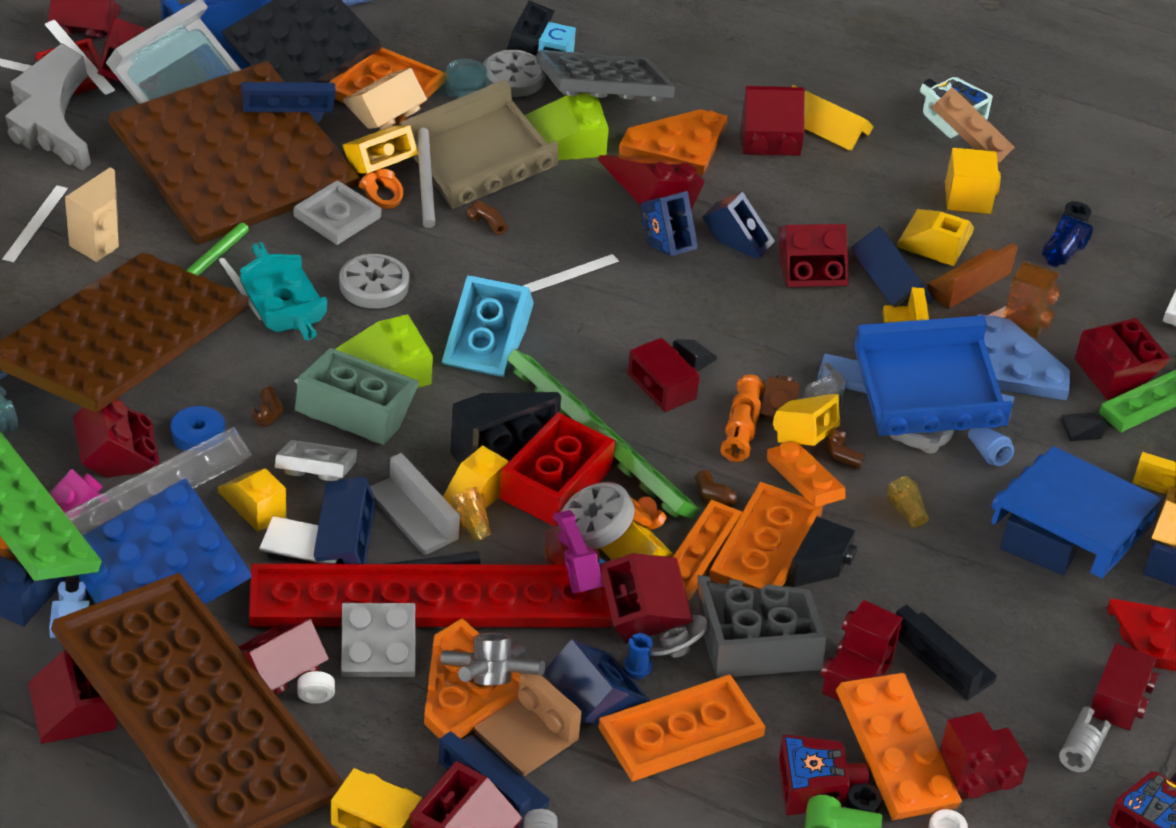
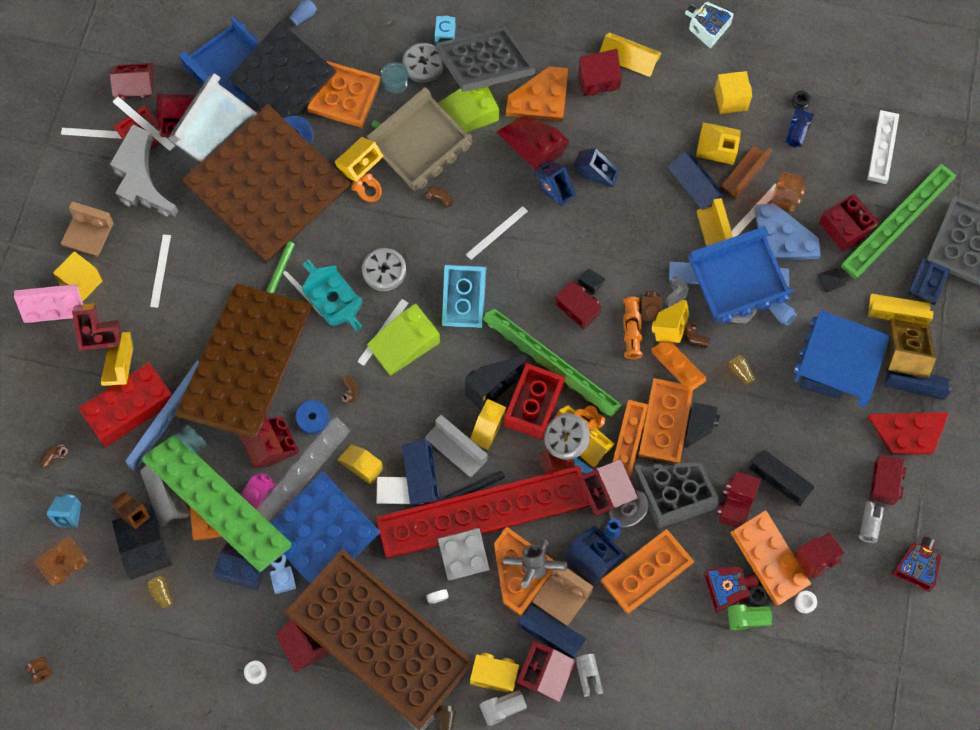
camera: 10 degrees left, 25 degrees up
(94, 216) = (199, 267): tan slope -> none
(285, 653) = (410, 579): slope -> none
(287, 96) = (290, 134): dark blue panel -> none
(314, 458) = (391, 429): light grey plate -> none
(337, 212) = (345, 217): light grey plate -> none
(355, 395) = (400, 372): sand green slope -> none
(386, 99) = (351, 116): tan slope -> none
(425, 178) = (393, 174): light grey bar -> none
(472, 512) = (491, 445): clear yellow cone -> none
(530, 27) = (425, 21): black hinge -> none
(580, 559) = (566, 475): magenta piece -> none
(710, 490) = (625, 390): reddish brown arm -> none
(814, 255) = (647, 181): dark red slope -> none
(971, 124) = (725, 44): medium nougat plate -> none

